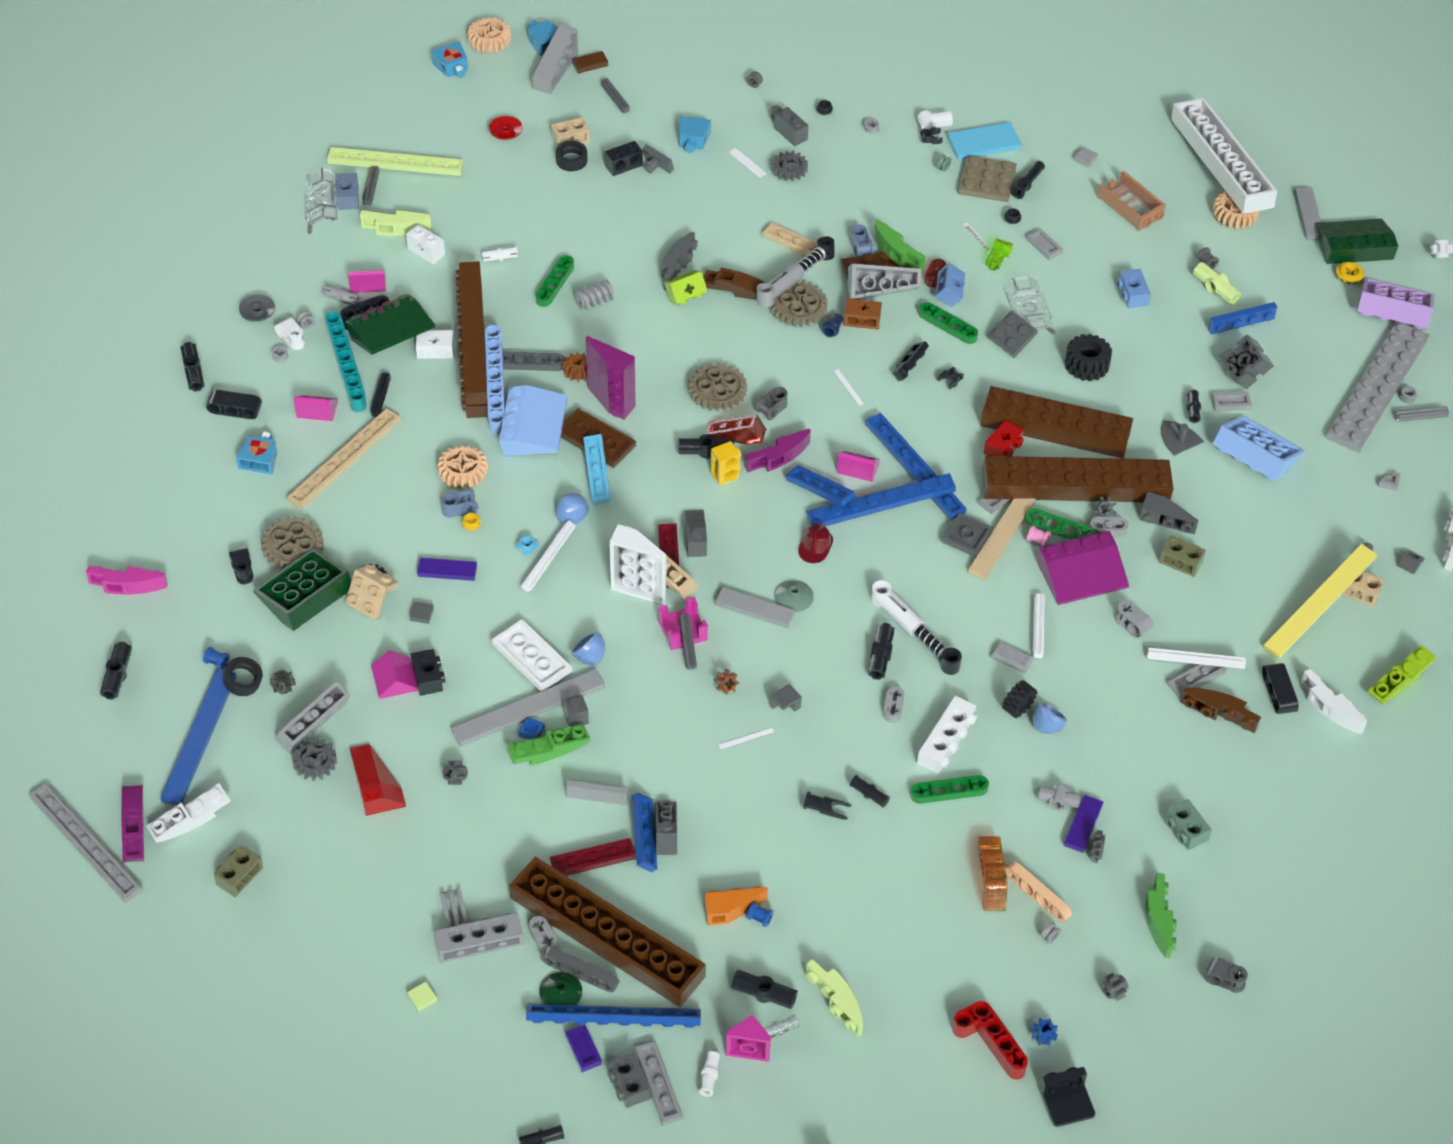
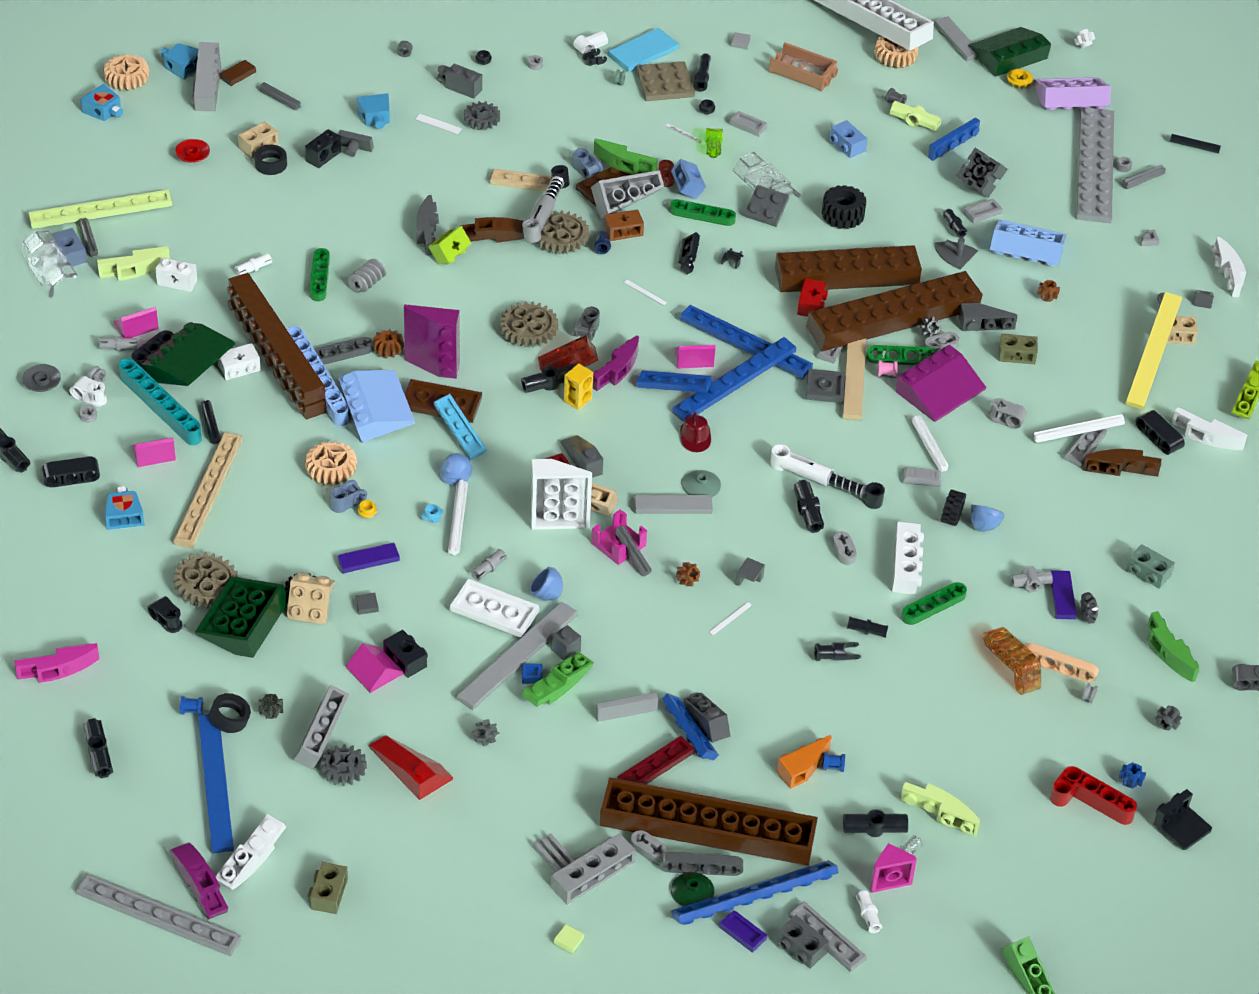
camera: 25 degrees left, 5 degrees down
(550, 611) = (488, 564): none -> light grey pin
(1249, 505) = (1048, 290): none -> dark orange gear

